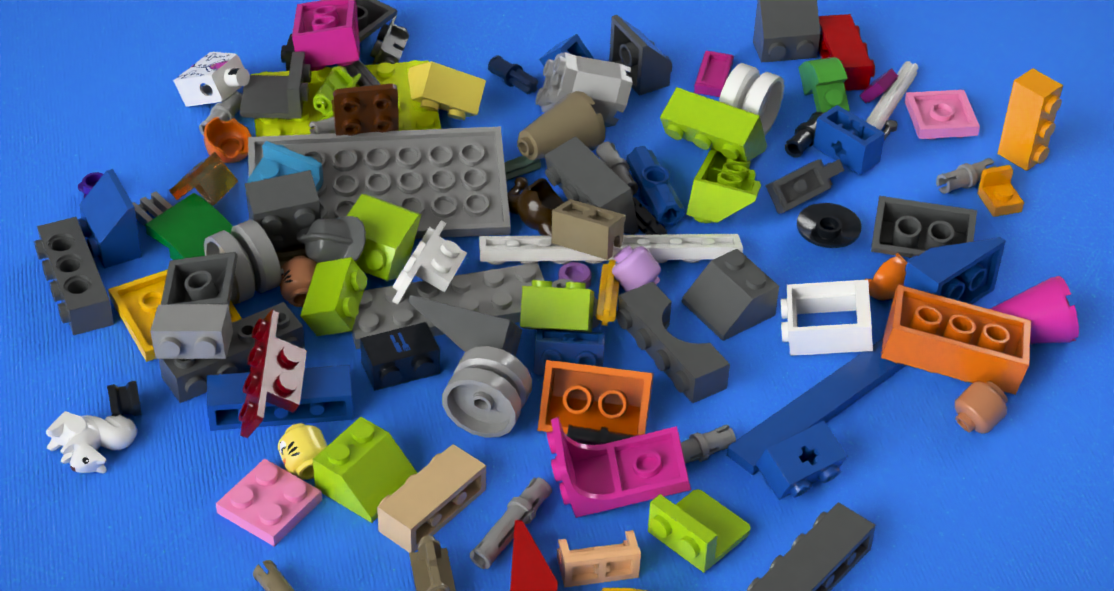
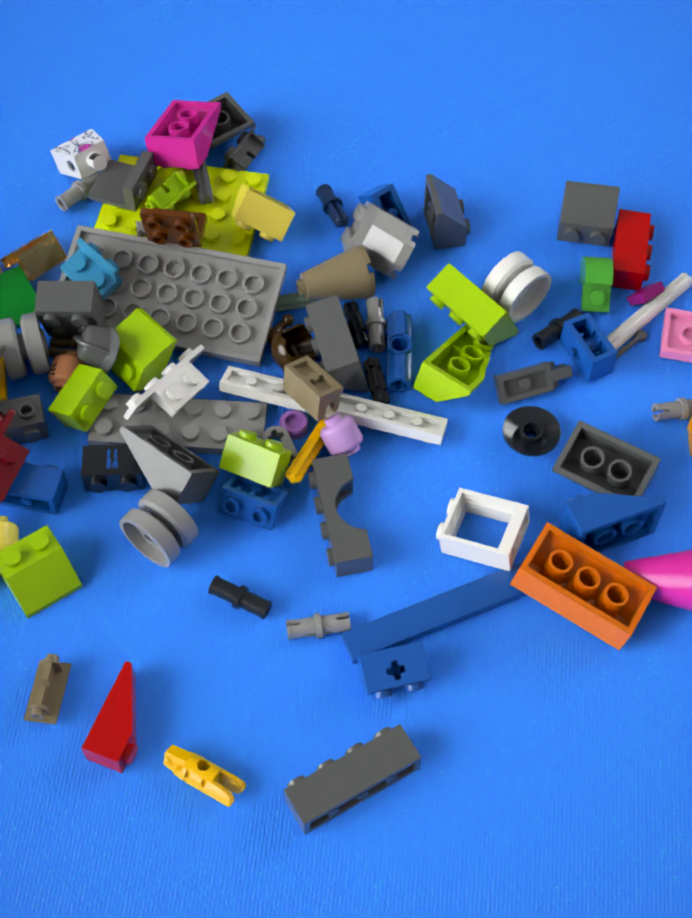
camera: 20 degrees right, 15 degrees up
(227, 139) = (67, 215): orange hair -> none
(431, 497) = (77, 613): tan brick -> none
(502, 533) = (135, 652): light grey pin -> none
(595, 398) = (251, 555): orange slope -> none
(599, 563) = (184, 713): light nougat hinge -> none
(618, 471) = (230, 634): dark pink bracket -> none
(696, 528) = (278, 707): lime bracket -> none
(713, 73) = (508, 240): dark pink tile -> none
(732, 295) = (413, 481): dark grey slope -> none
(887, 278) = (552, 504): orange hair -> none
(981, 407) = (576, 658): nougat head -> none

